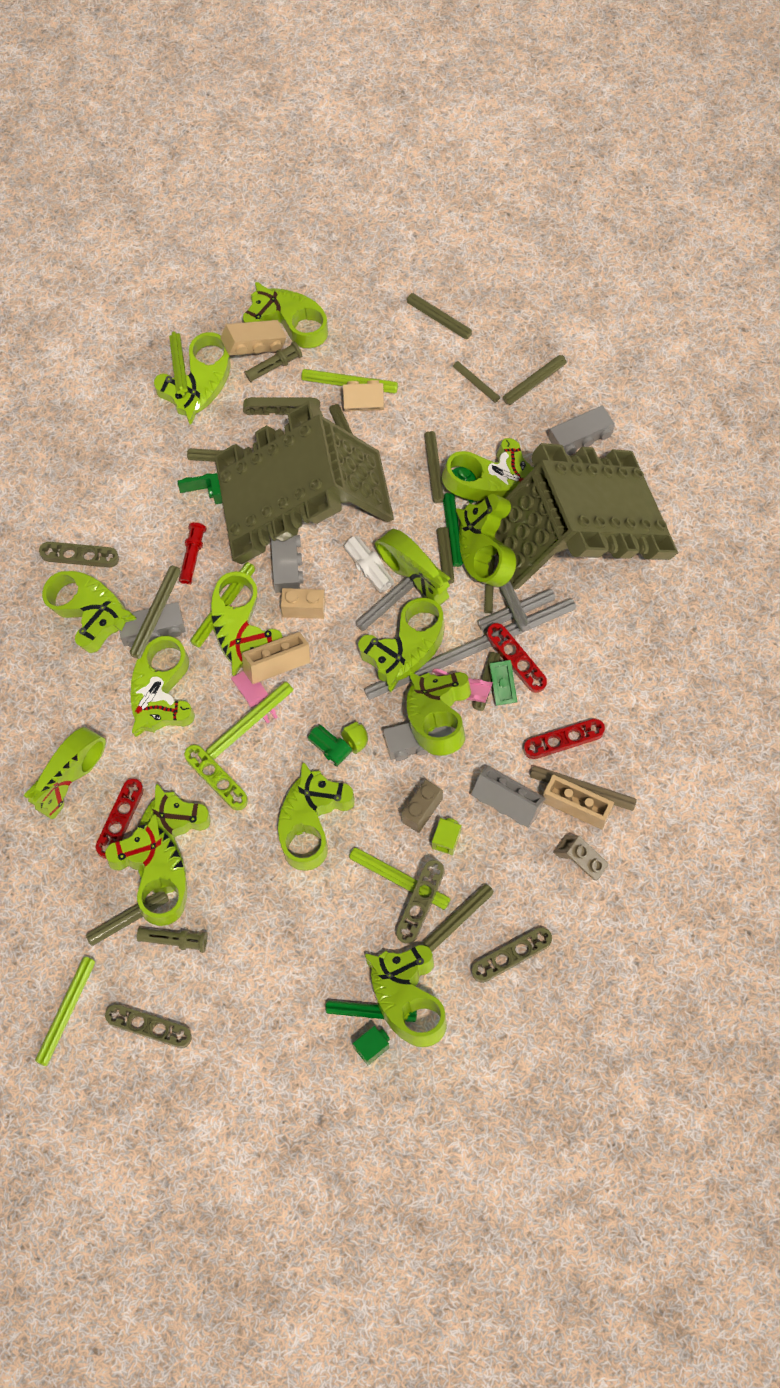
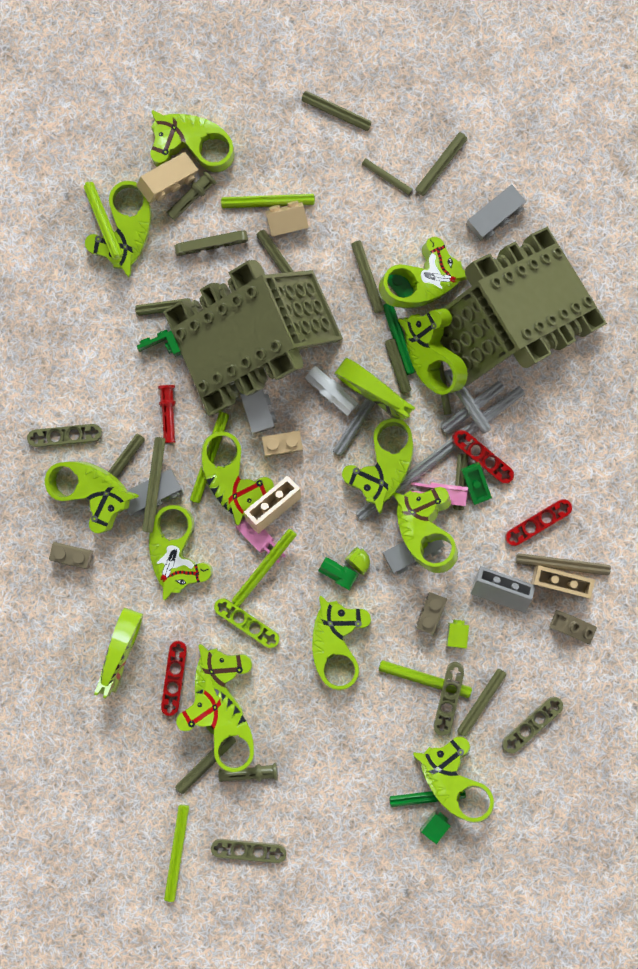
camera: 20 degrees left, 20 degrees up
(47, 668) = (71, 555): none -> dark tan brick
(138, 584) = (126, 455): none -> olive axle

